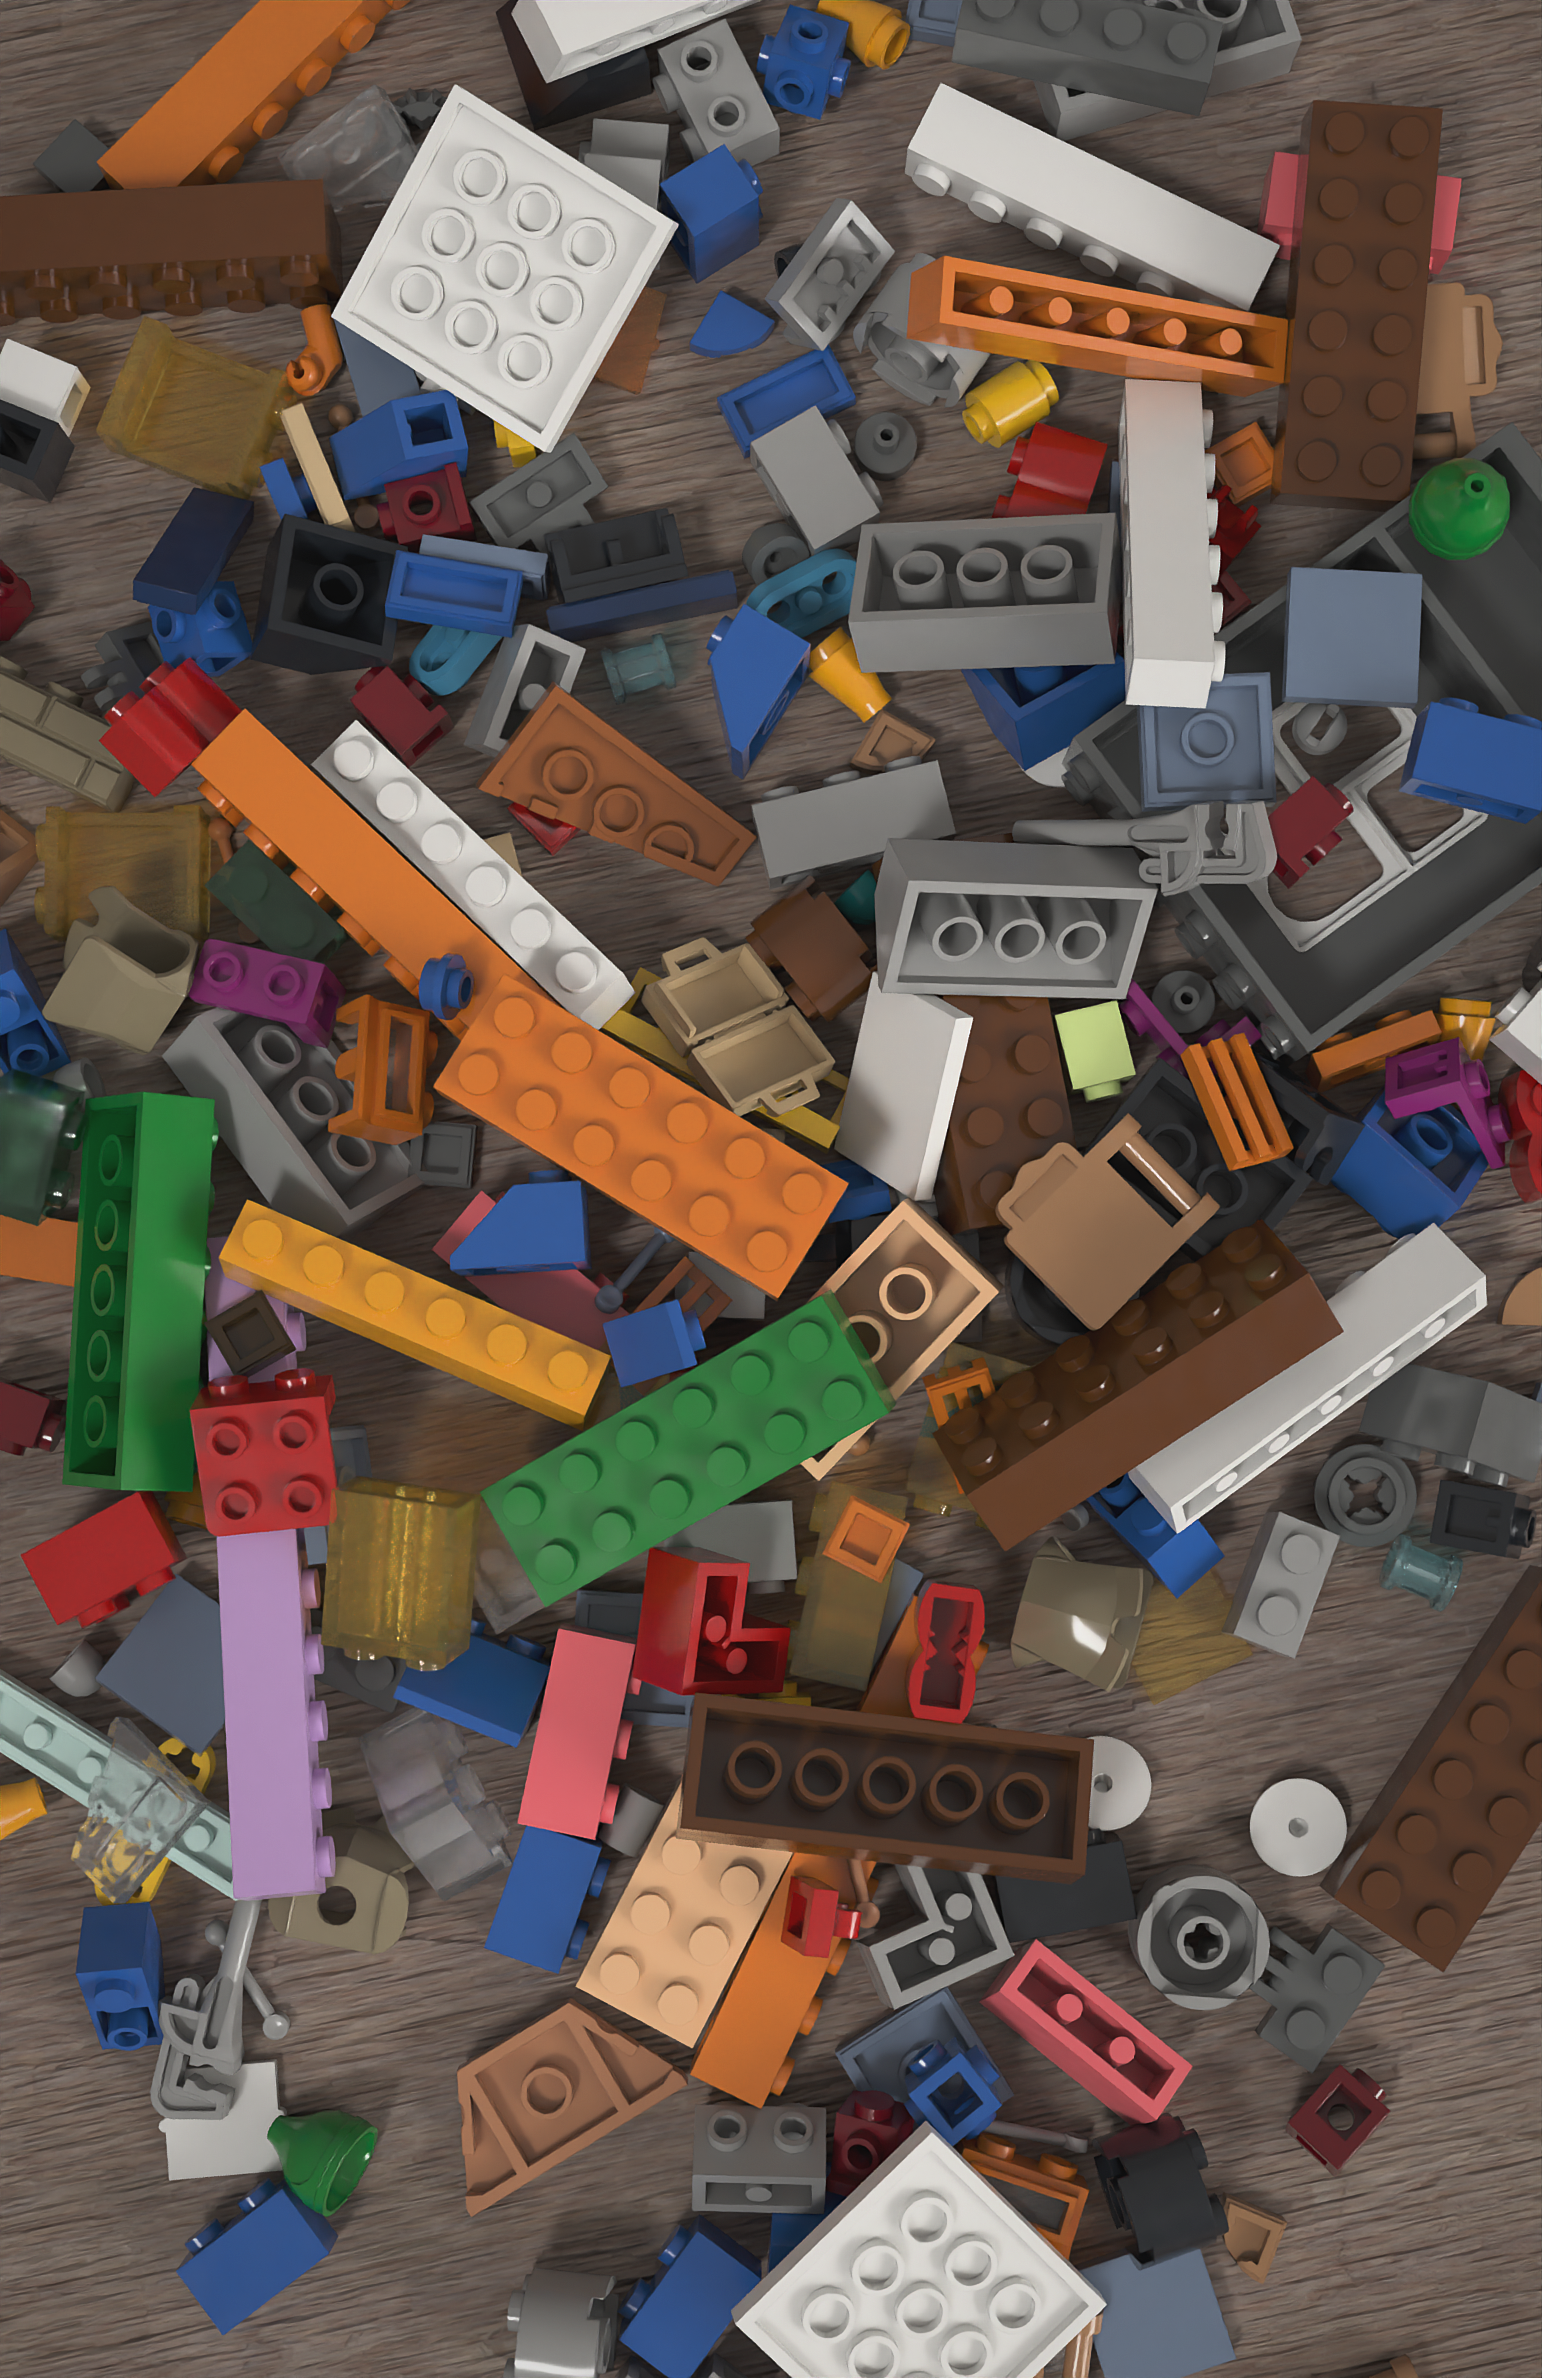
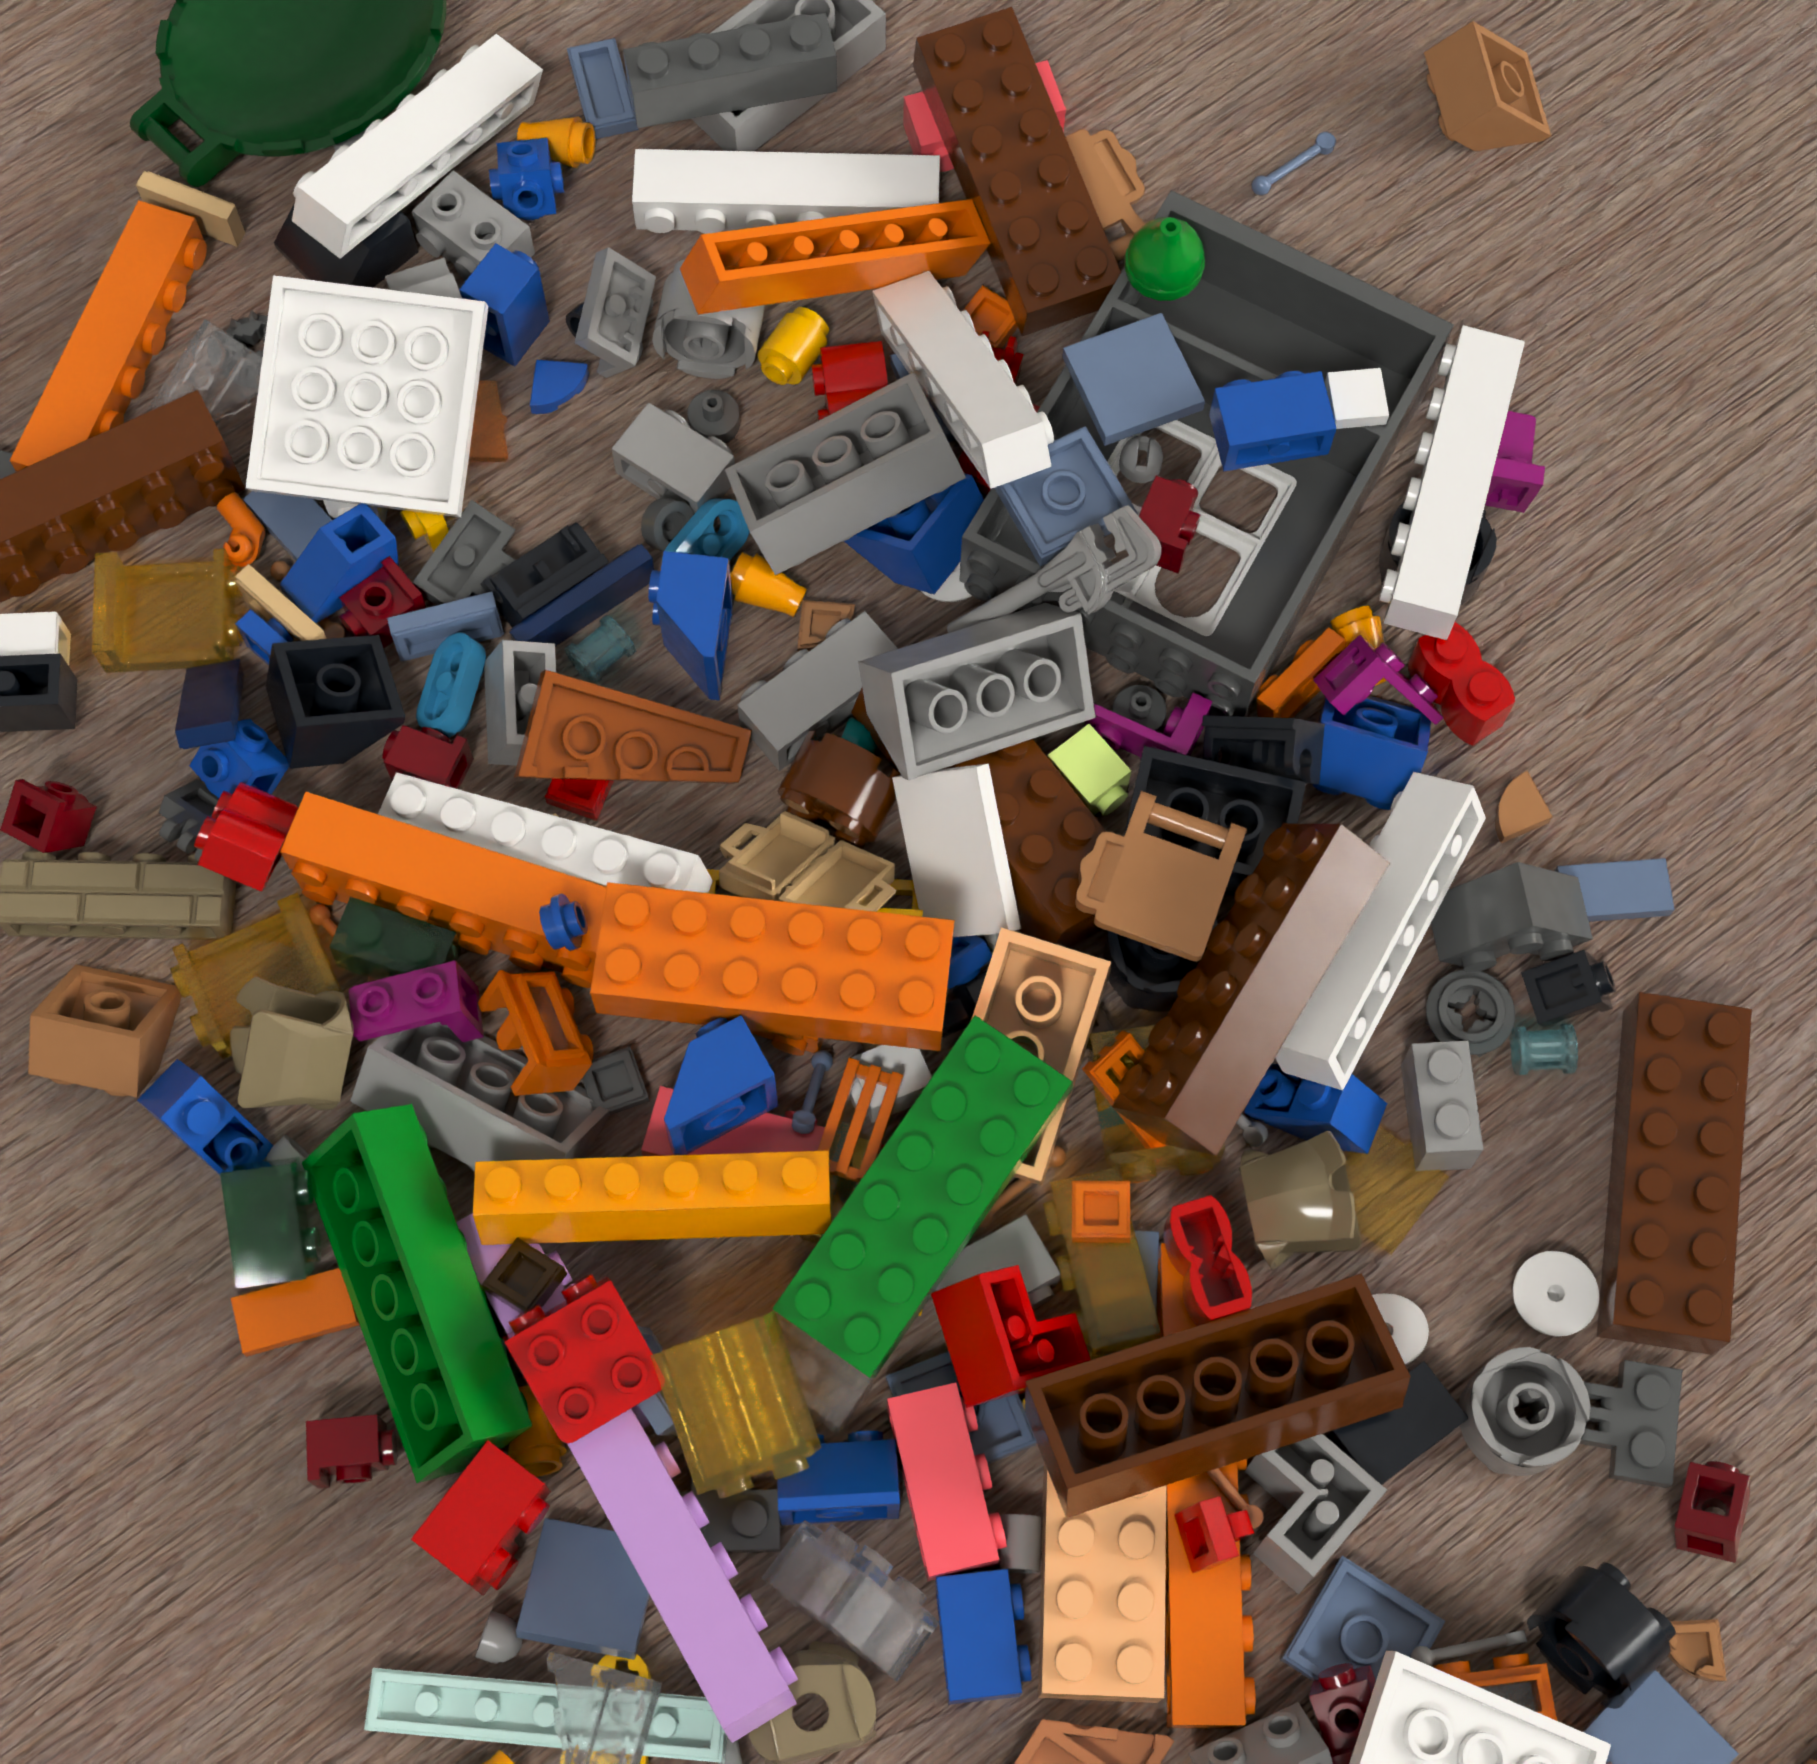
camera: 25 degrees left, 15 degrees down
(454, 593) = (432, 649): blue tile -> none
(654, 1342) = (858, 1121): blue slope -> none
(784, 394) = (617, 411): blue tile -> none
(957, 2113) = (1407, 1612): blue brick -> none
(1086, 2034) = (1476, 1535): coral brick -> none
(1246, 1100) = (1224, 746): orange tile -> none

